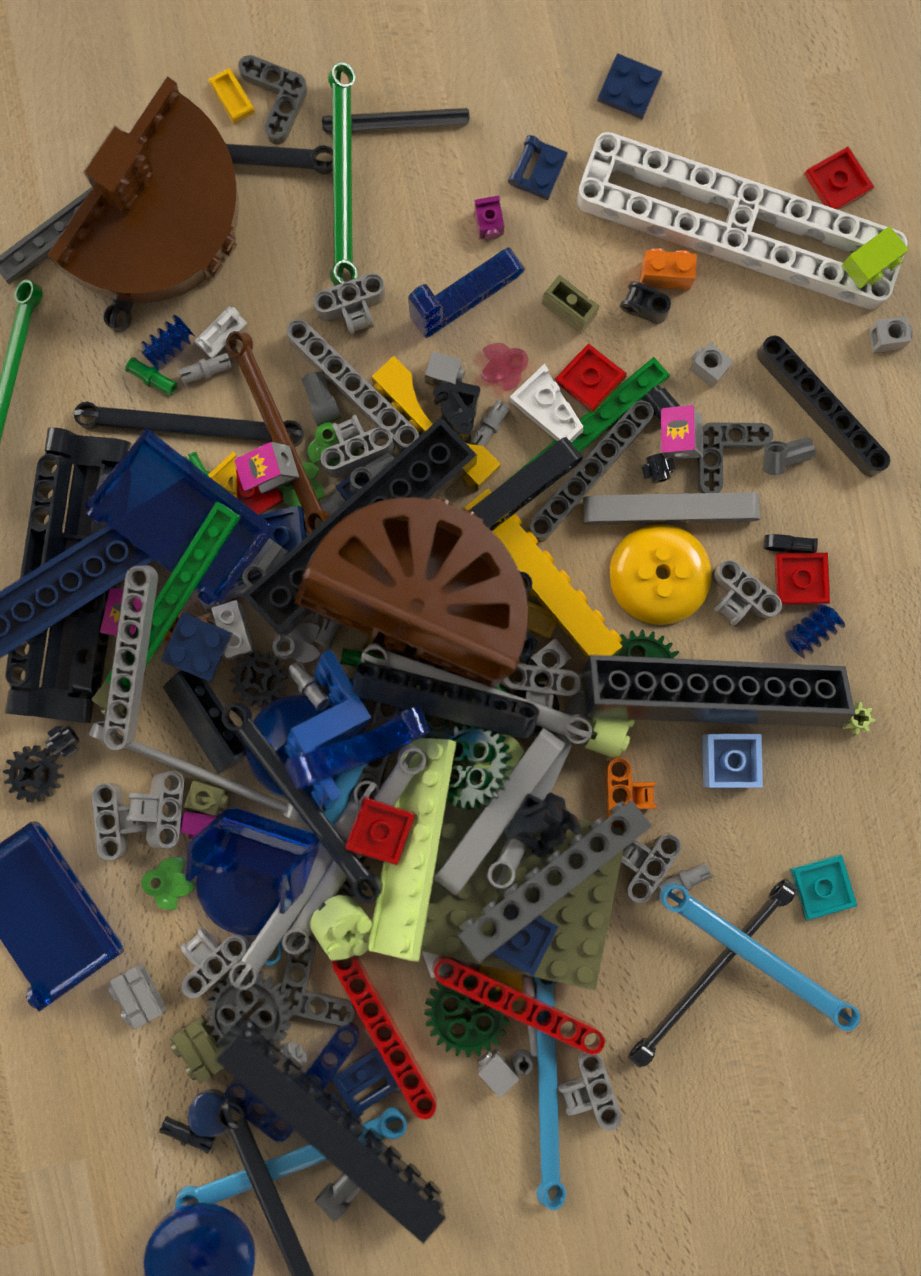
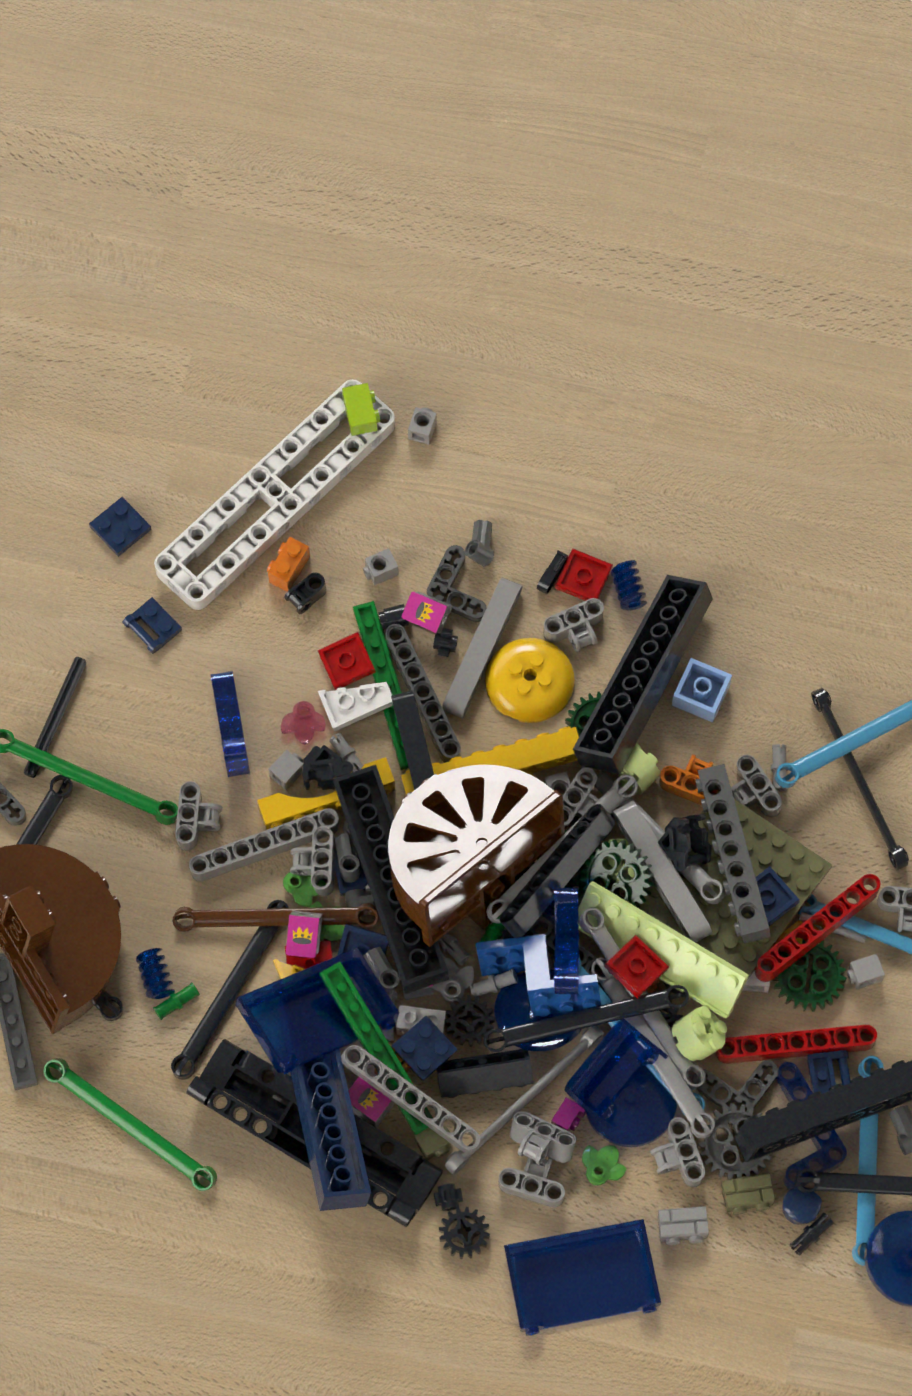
camera: 60 degrees left, 15 degrees down
(205, 368) = (191, 955): light grey pin -> none
(207, 798) = (548, 1100): olive brick -> none
(215, 336) = (164, 930): white hinge -> none
(322, 403) = (267, 875): dark grey piece -> none
(487, 208) = (179, 687): magenta brick -> none
(518, 1057) = (866, 943): dark grey pin -> none
(570, 304) = (281, 649): olive brick -> none
(823, 887) = (831, 669): teal tile -> none
(835, 409) = (462, 492): black beam -> none
(839, 179) = (278, 406): red plate -> none
(865, 717) = (718, 584): yellowish green gear -> none

